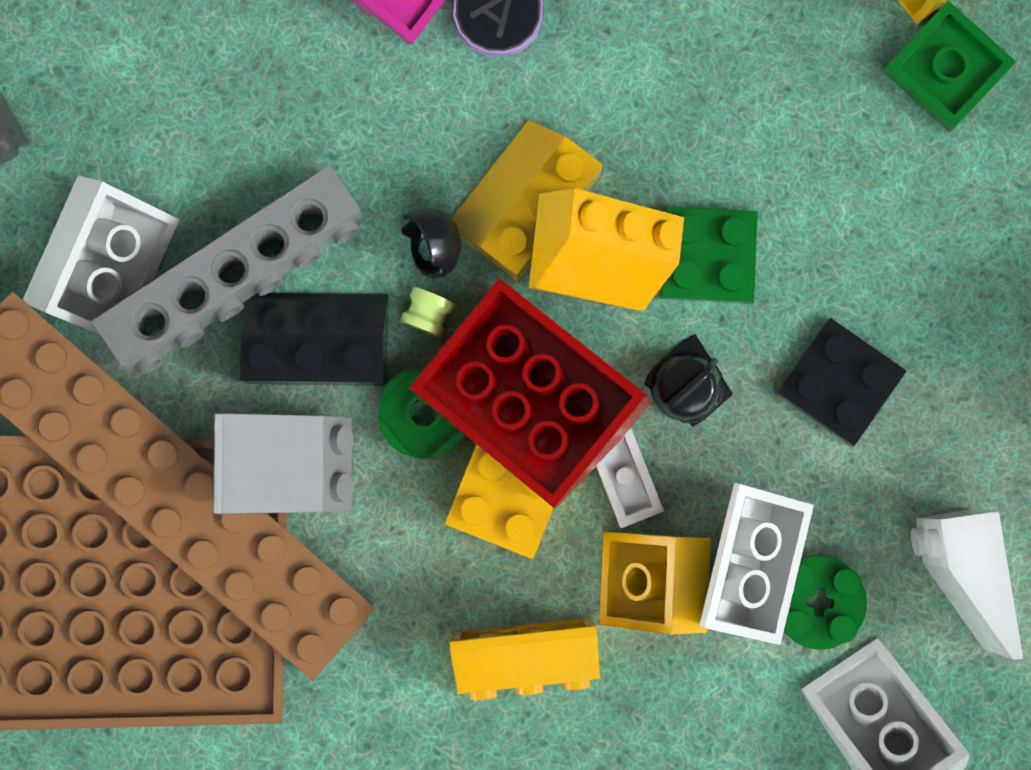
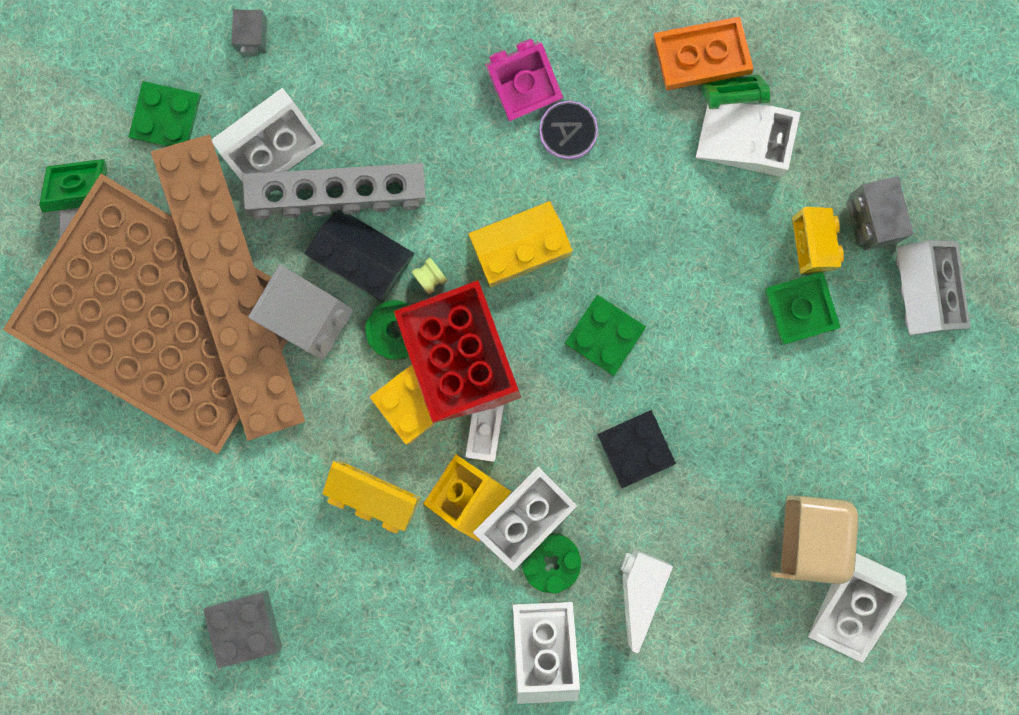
camera: 30 degrees right, 0 degrees up
(441, 239) = (460, 238): black hair -> none
(603, 248) = (544, 298): yellow slope -> none
(688, 383) = (551, 399): black piece -> none

